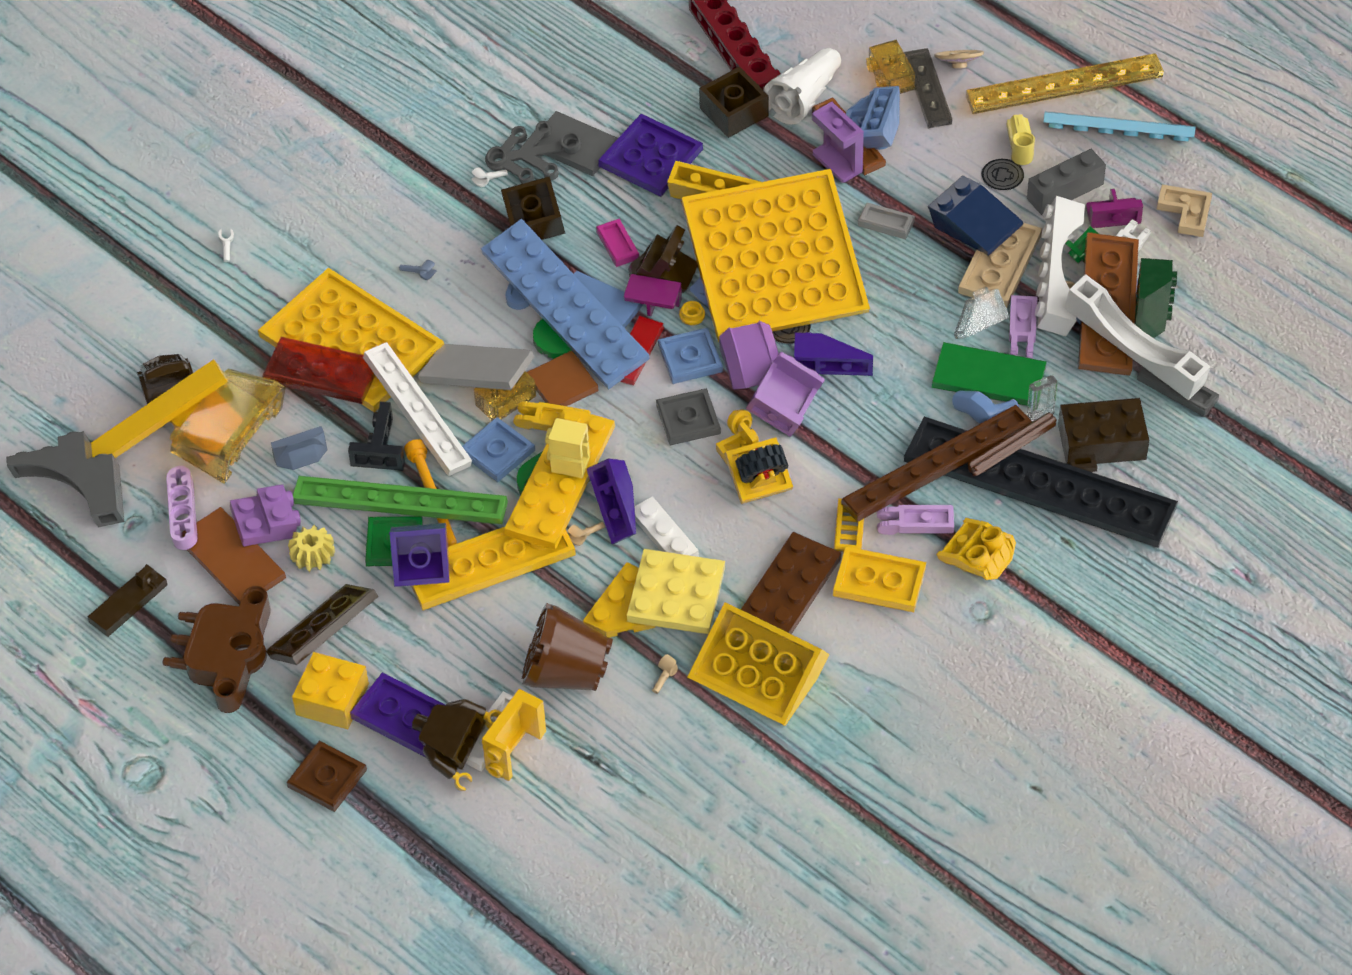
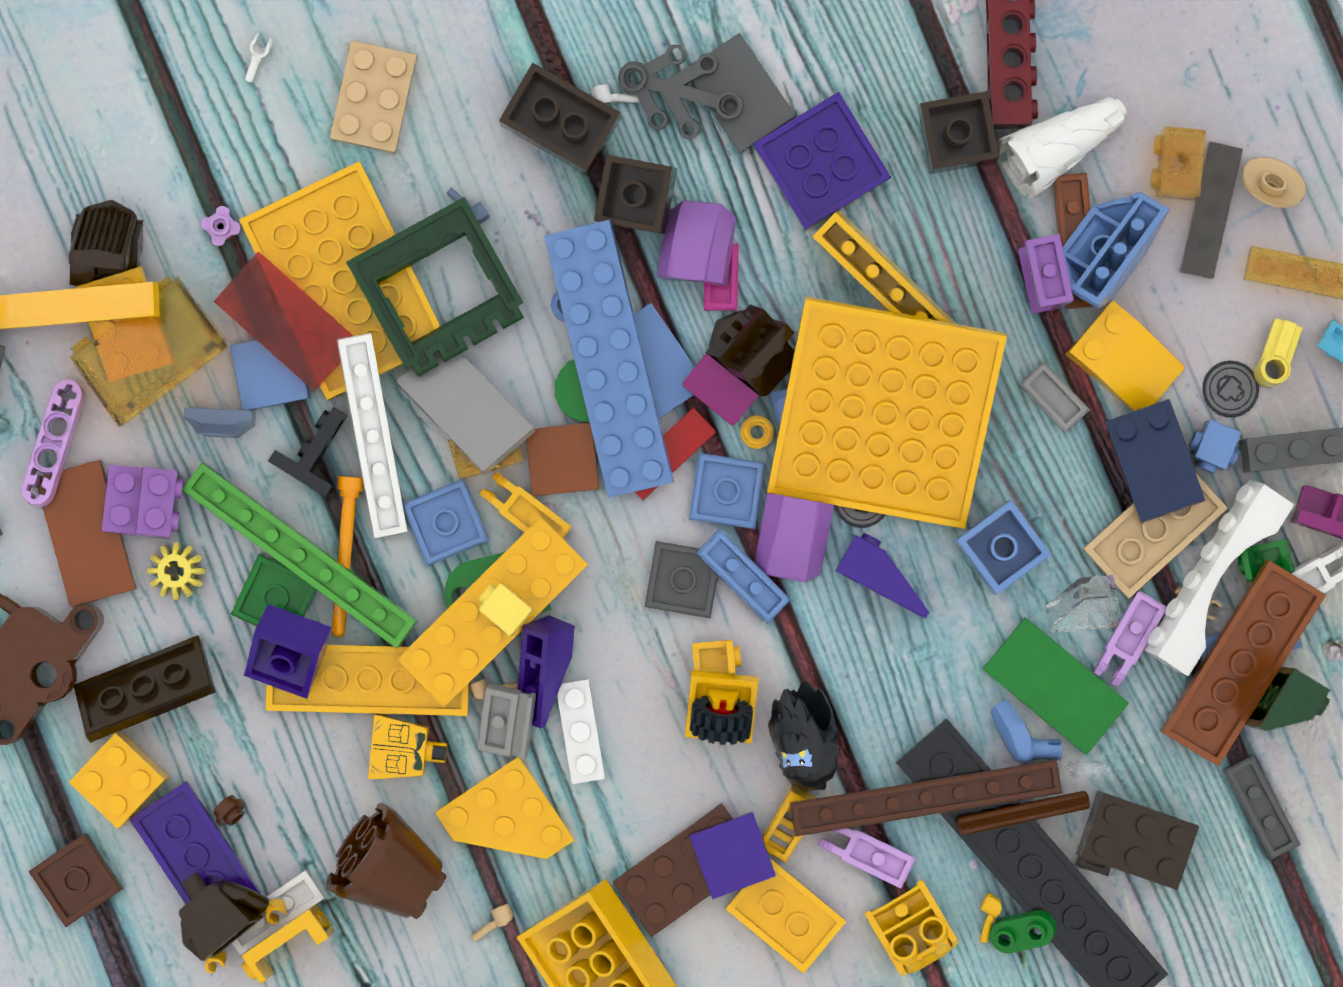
camera: 20 degrees right, 35 degrees up
(246, 343) = (220, 235): none -> lavender plate
(320, 236) = (373, 97): none -> tan plate
(320, 410) = (264, 378): none -> medium blue tile
(400, 284) = (416, 244): none -> dark green hinge
(425, 679) = (229, 811): none -> reddish brown plate
(458, 192) = (560, 119): none -> dark brown brick
(534, 587) = (401, 748): none -> yellow torso
(591, 227) = (697, 243): none -> medium lavender slope
(606, 539) = (506, 721): none -> light grey plate
(676, 591) = (550, 832): light yellow plate -> none
(721, 391) = (742, 576): none -> medium blue tile
(737, 417) = (735, 622): yellow plate -> none
(785, 393) = (802, 612): medium lavender panel -> none
(818, 551) = (732, 855): none -> dark purple tile
(828, 461) = (805, 737): none -> black head
(901, 304) = (1002, 547): none -> medium blue brick
(915, 176) = (1125, 358): none -> yellow slope
(1013, 196) = (1215, 446): none -> medium blue brick
(1026, 516) = (993, 907): none -> yellow hand
(1059, 518) = (1020, 931): none -> green plate
(1173, 366) = (1239, 747): white arch -> none

